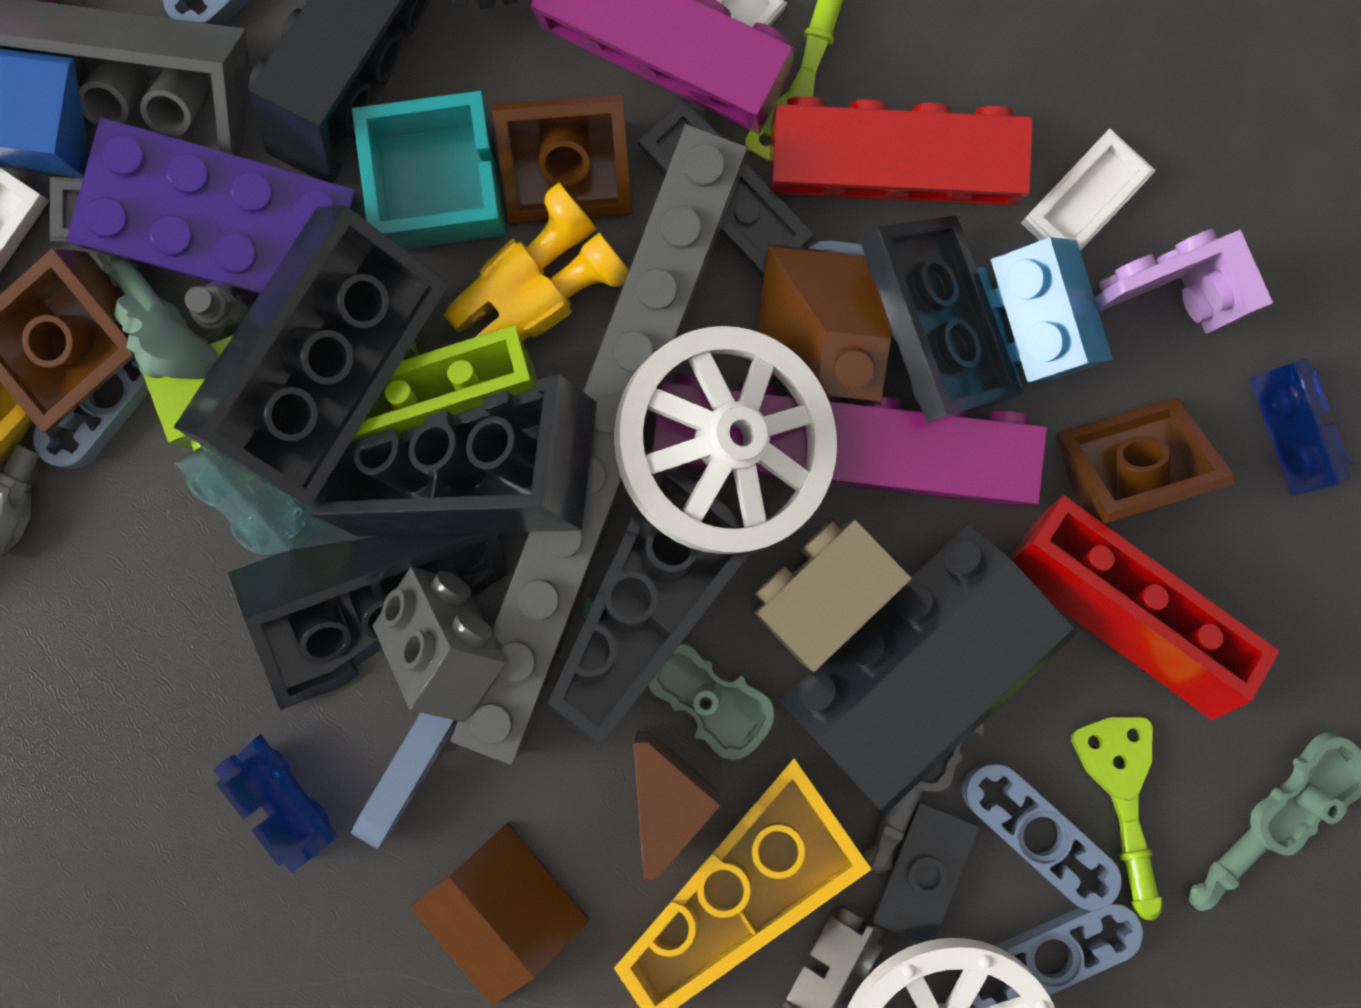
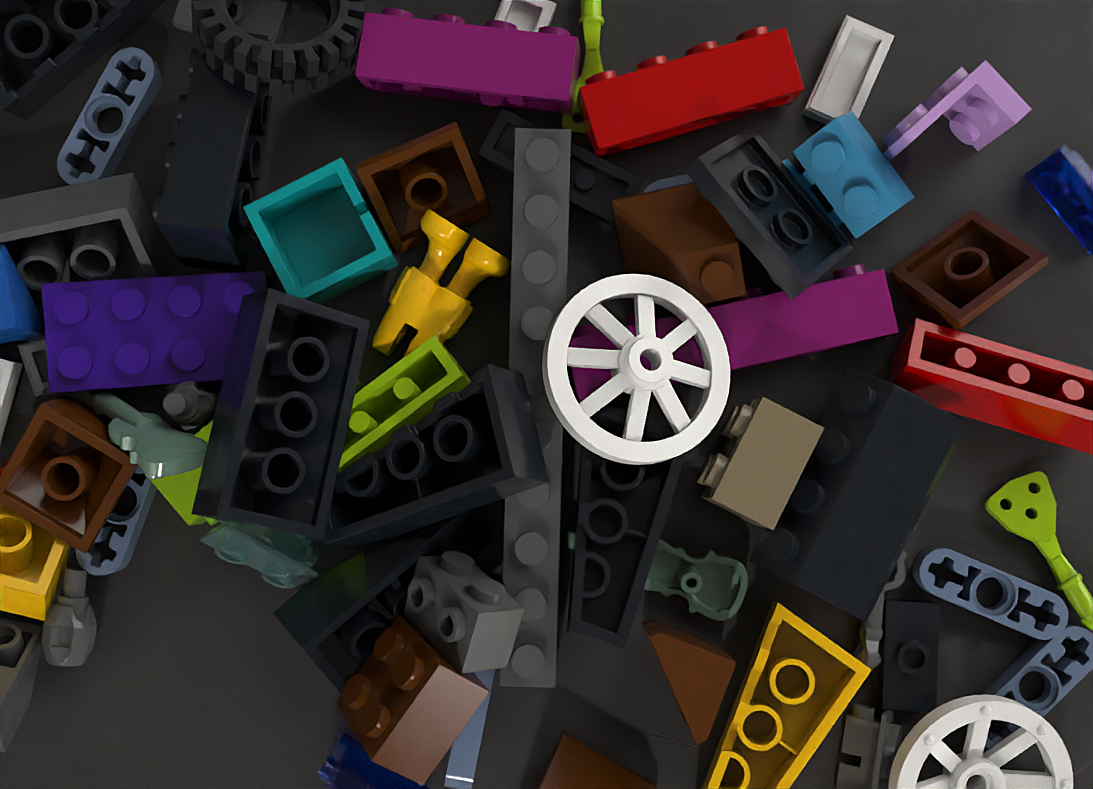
camera: 20 degrees left, 0 degrees up
(342, 723) = (409, 702): none -> reddish brown piece

